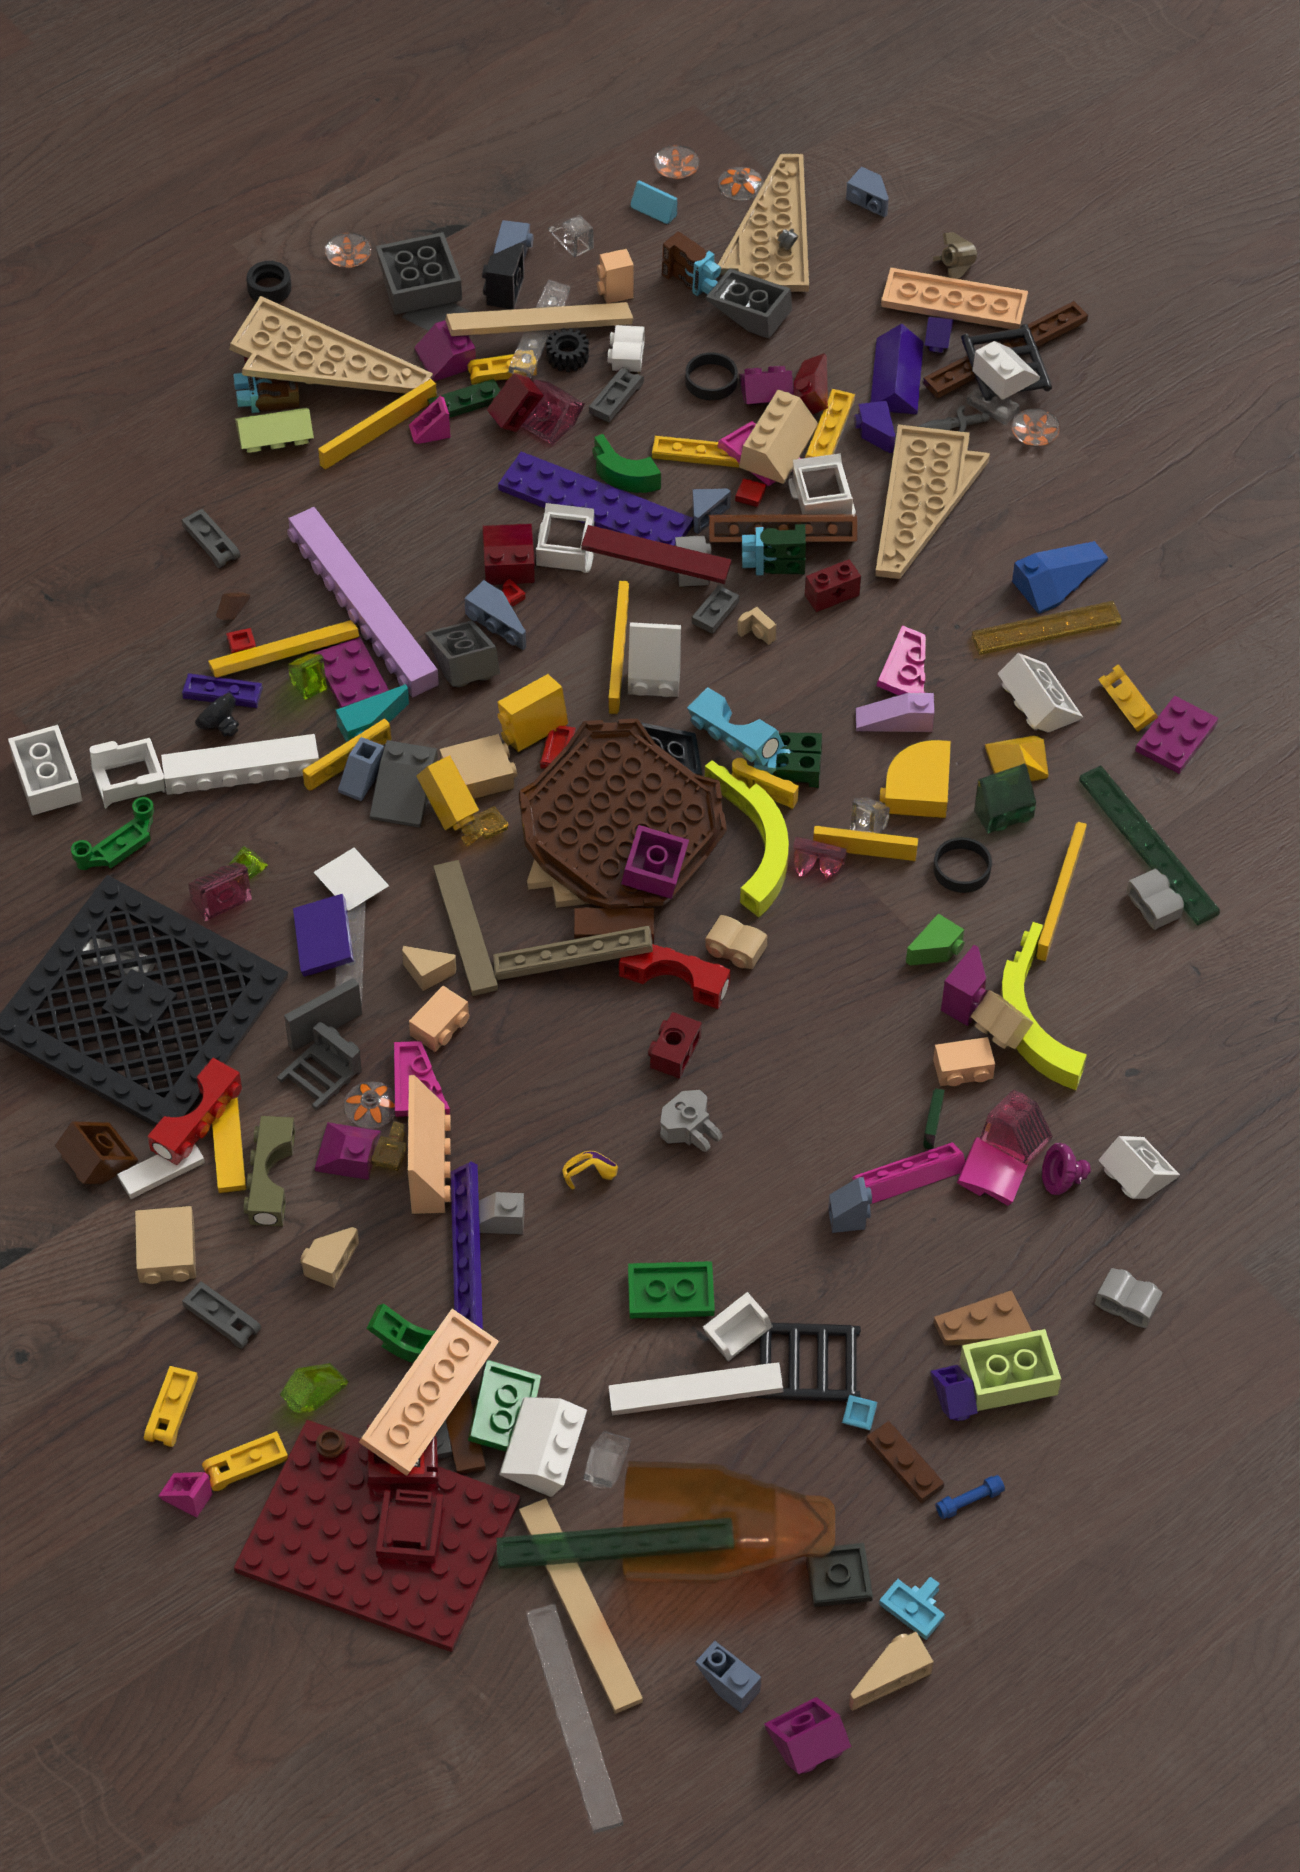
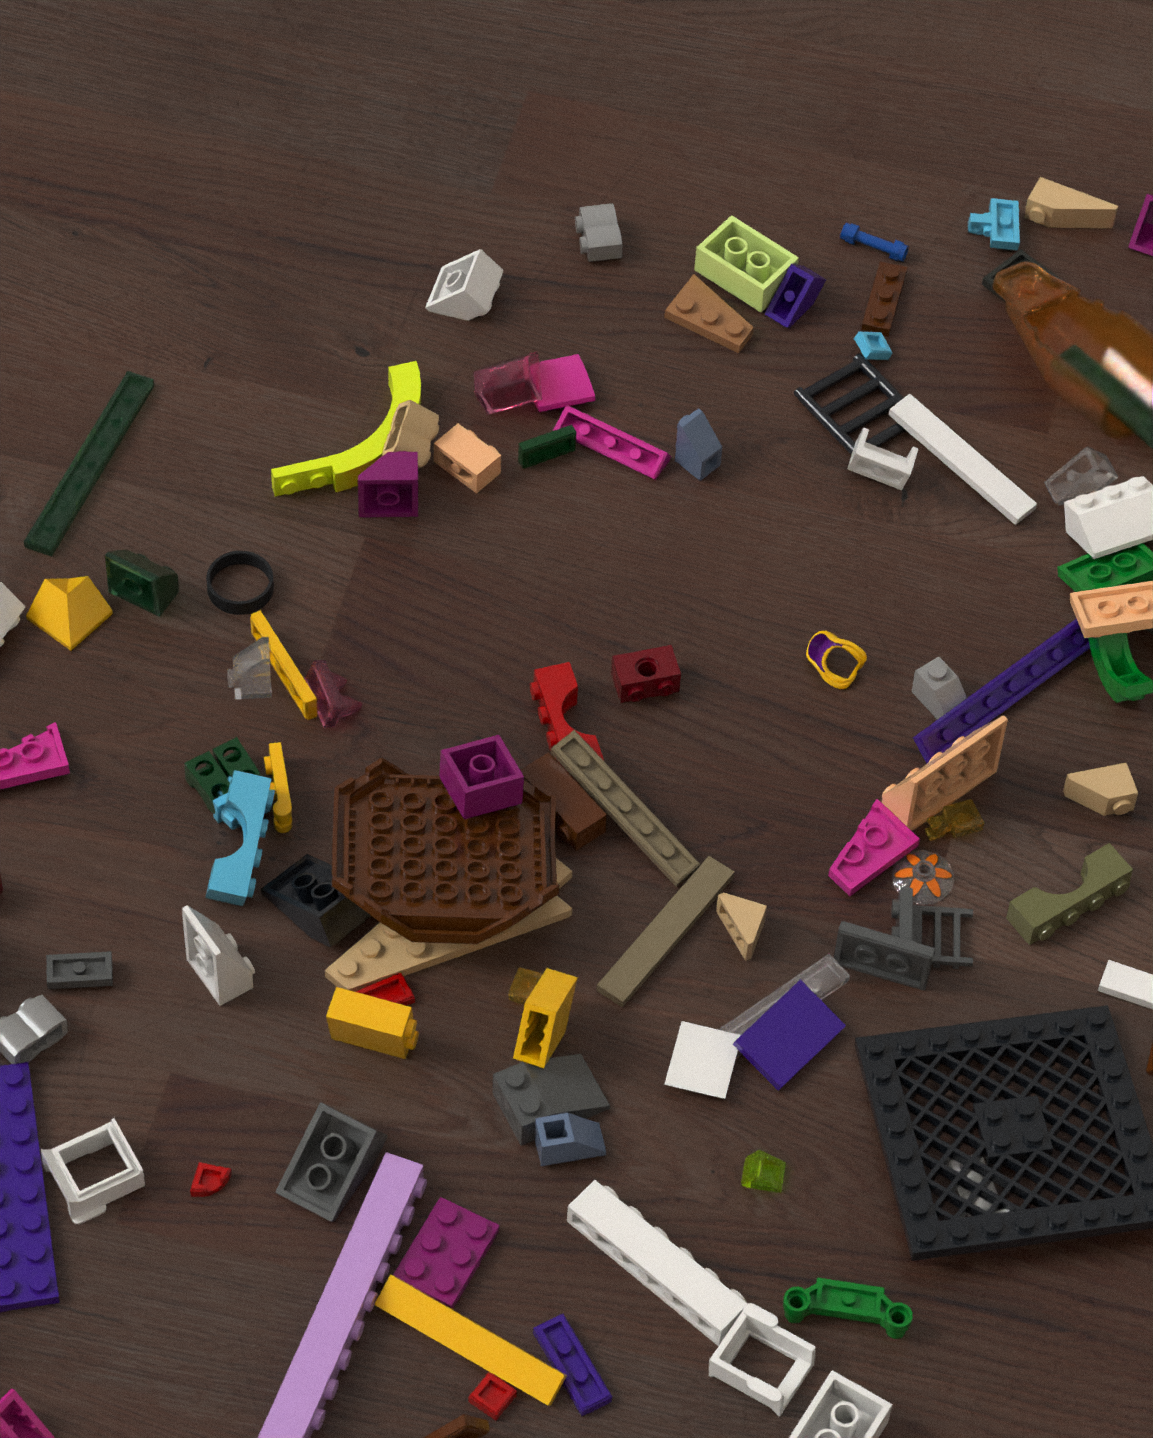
camera: 130 degrees left, 0 degrees up
(176, 1136) = (1117, 982): red arch -> none
(219, 716) = (618, 1326): black hair -> none
(221, 890) = (824, 1155): clear pink slope -> none
(229, 1150) = (1071, 958): yellow tile -> none
(308, 675) = (490, 1277): clear neon green slope -> none
(336, 760) = (554, 1170): yellow tile -> none
(347, 1151) = (988, 853): magenta slope -> none
(364, 714) = (493, 1186): teal slope -> none
(439, 1019) = (790, 874): light nougat brick -> none
(483, 765) = (471, 1041): tan brick -> none
(492, 609) = (249, 1169): sand blue slope -> none
(508, 553) = (151, 1216): dark red slope -> none
(618, 647) = (205, 1022): yellow tile -> none
(656, 554) = (62, 1048): dark red tile -> none
(671, 1289) = (889, 531): green plate -> none
(688, 1120) = (720, 611): light grey hinge -> none
(736, 942) = (490, 697): tan brick -> none
(755, 802) = (345, 734): neon yellow arch -> none
(759, 623) = (72, 917): tan bracket -> none
(898, 714) = (96, 730): lavender slope -> none
(919, 780) = (166, 666): yellow brick -> none
(936, 942) = (354, 548): bright green slope -> none
(1061, 891) = (201, 490): yellow tile -> none
(1062, 1169) = (522, 328): magenta hair -> none
(1155, 898) = (157, 418): light grey brick -> none

